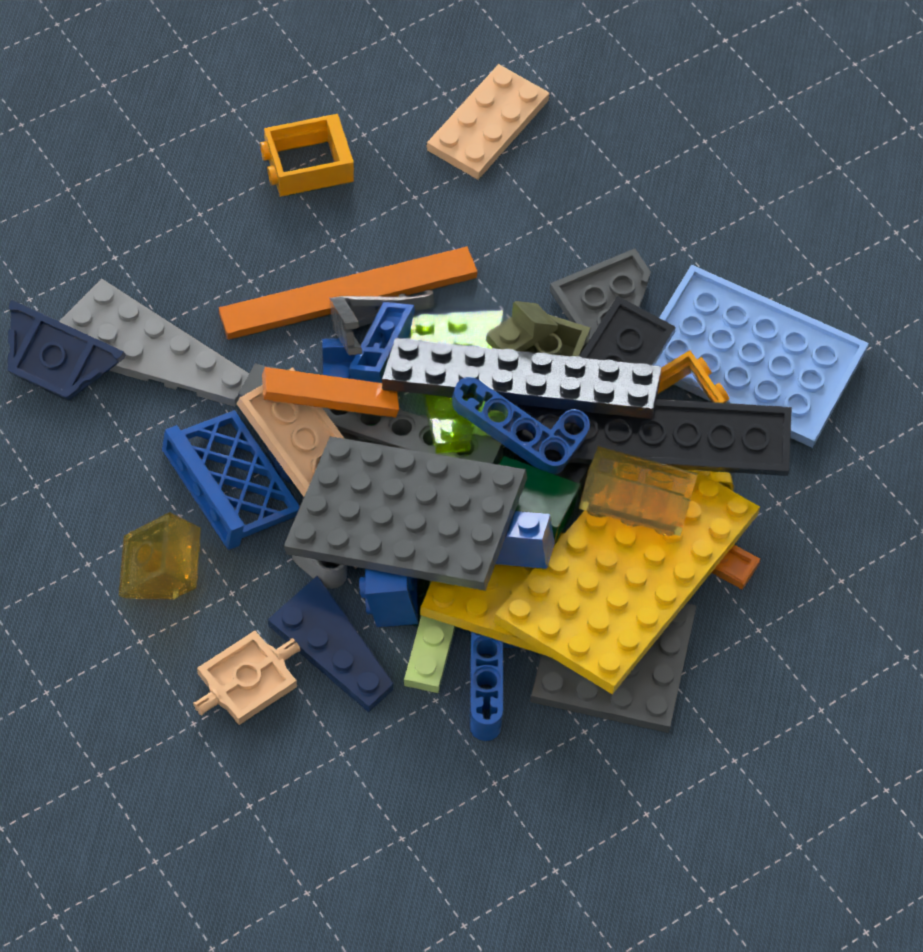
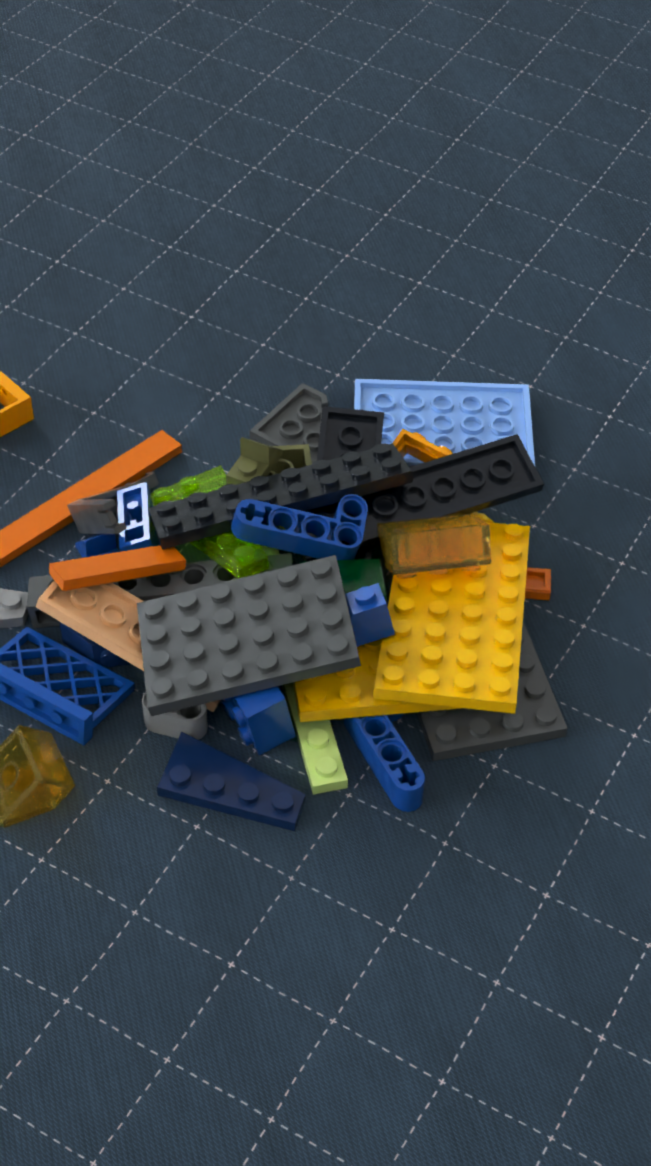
camera: 25 degrees left, 10 degrees down
(247, 677) = (165, 846): light nougat plate -> none
(488, 121) = (124, 339): light nougat plate -> none

